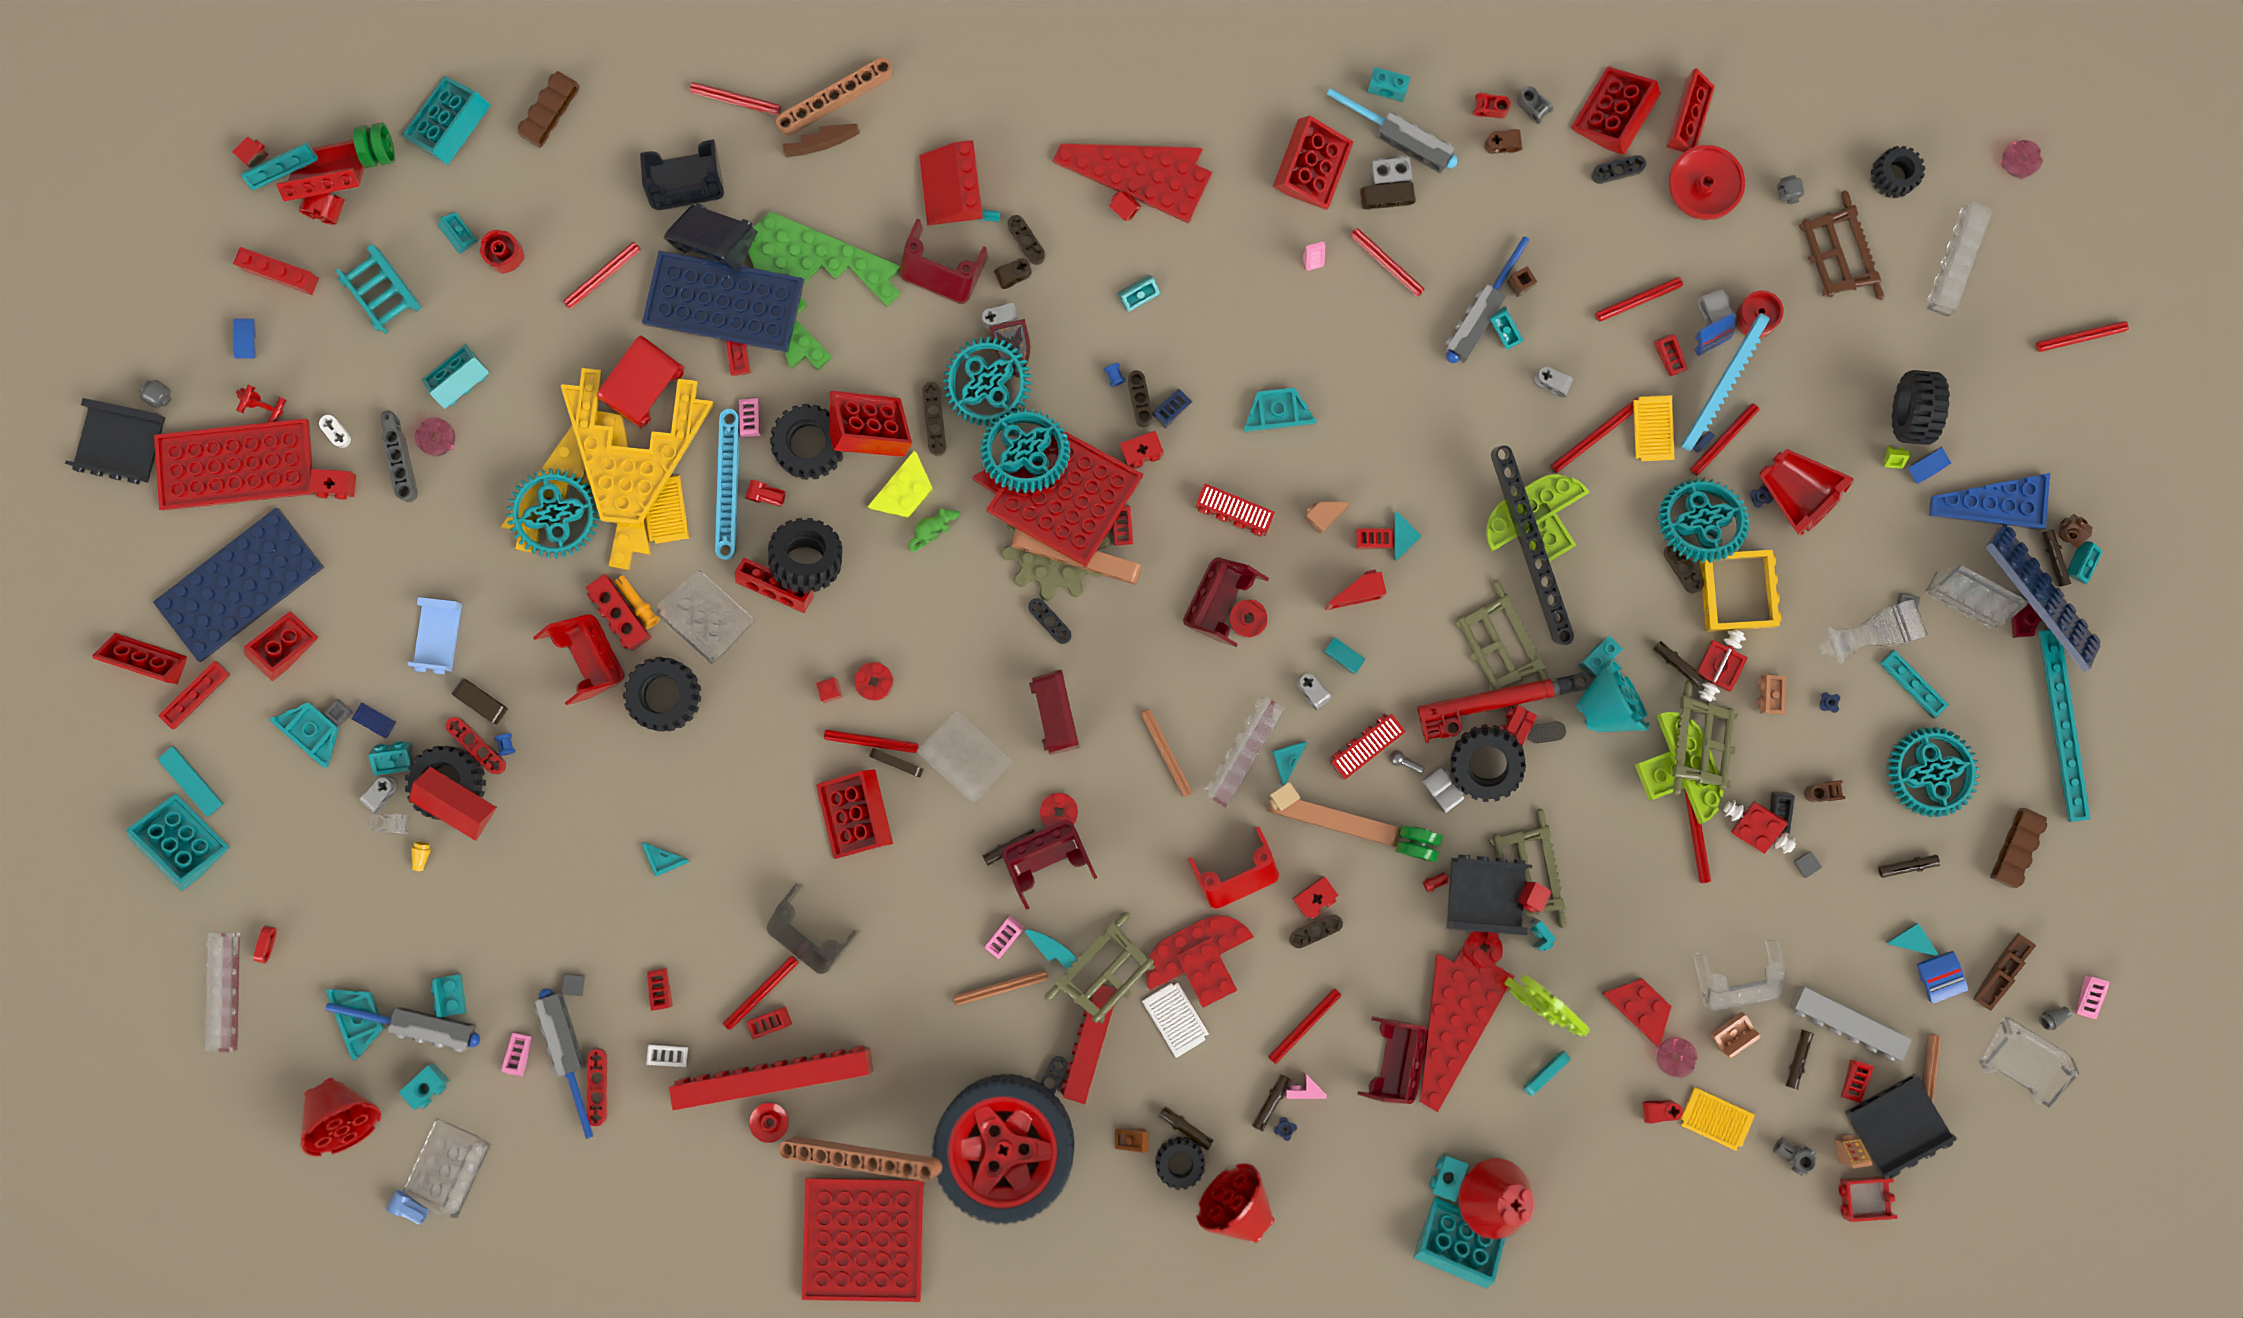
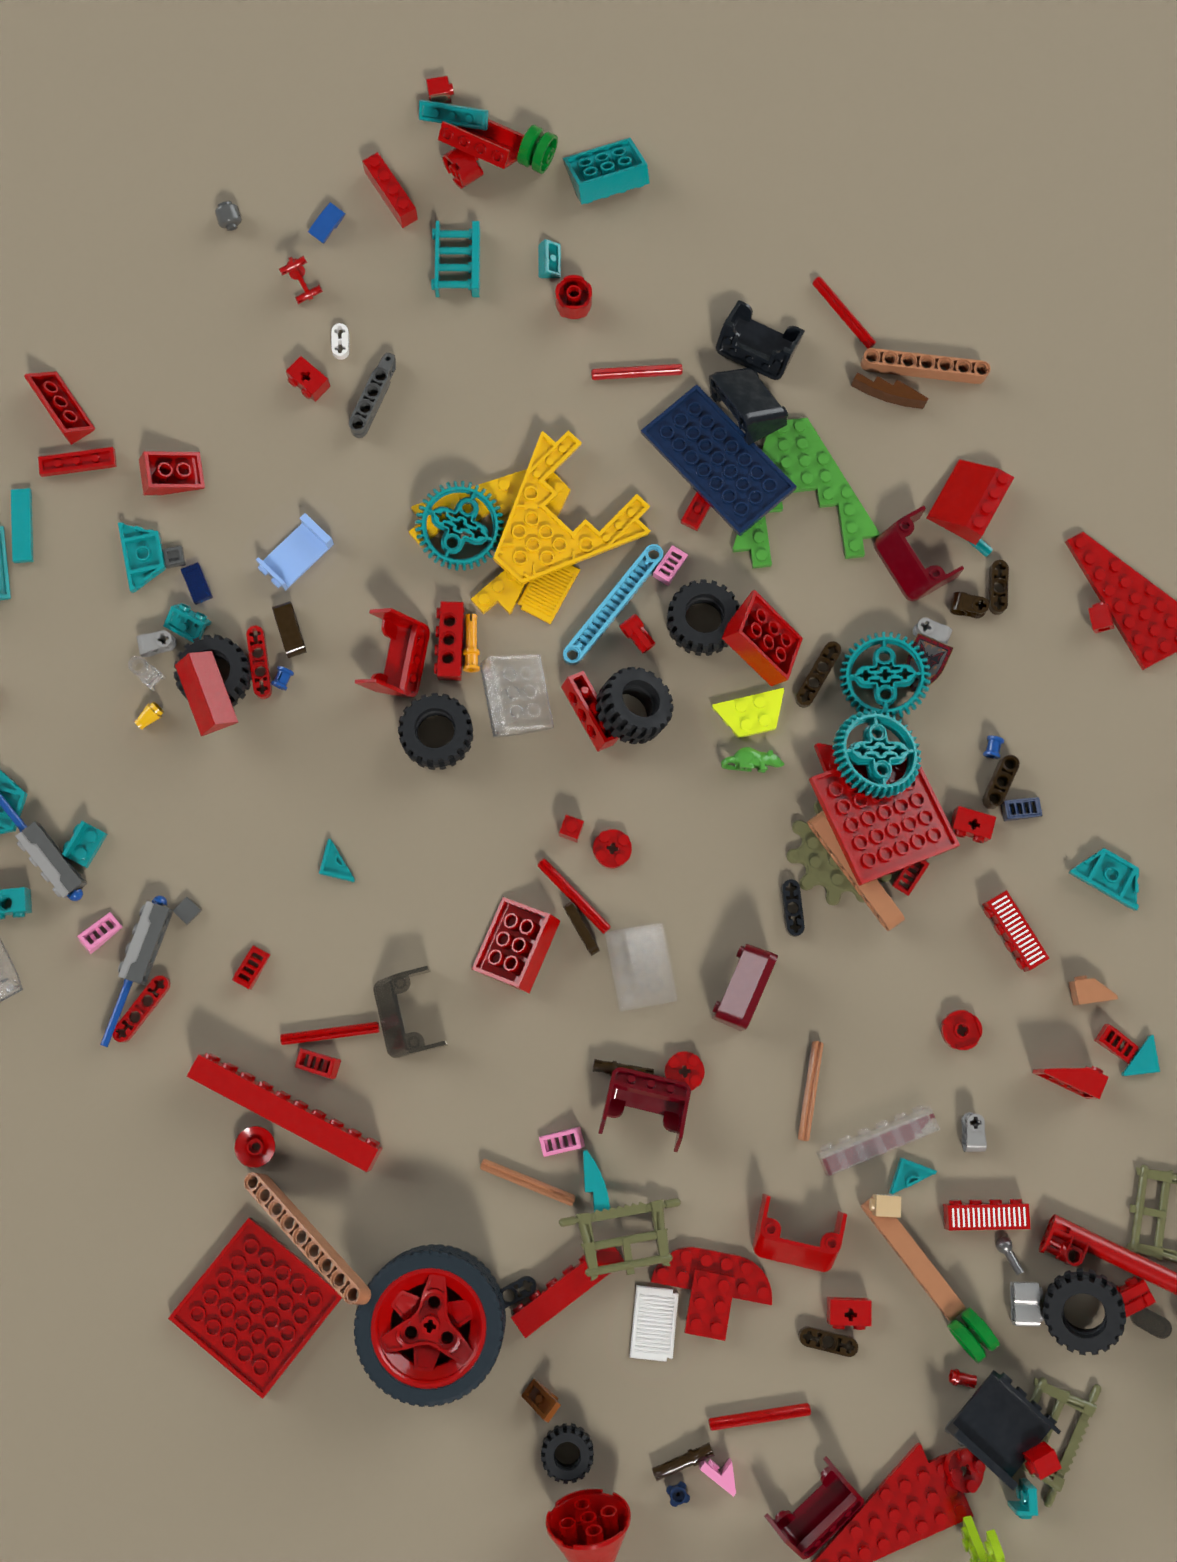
camera: 35 degrees right, 5 degrees down
(117, 442) = (172, 231): black panel -> none
(233, 464) = (244, 310): red plate -> none
(238, 584) = (176, 403): dark blue plate -> none
(426, 431) = (415, 411): clear pink plate -> none
(455, 376) = (464, 367): slope -> none
(548, 109) = (691, 217): reddish brown brick -> none
(639, 381) = (604, 473): red windscreen -> none
(649, 1059) = (227, 1026): white slope -> none
(1139, 293) = (1061, 696): teal slope -> none
(1186, 1128) = (596, 1433): dark brown pin -> none
(1216, 596) = (949, 990): dark red windscreen -> none
(1344, 655) = (1021, 1123): teal slope -> none

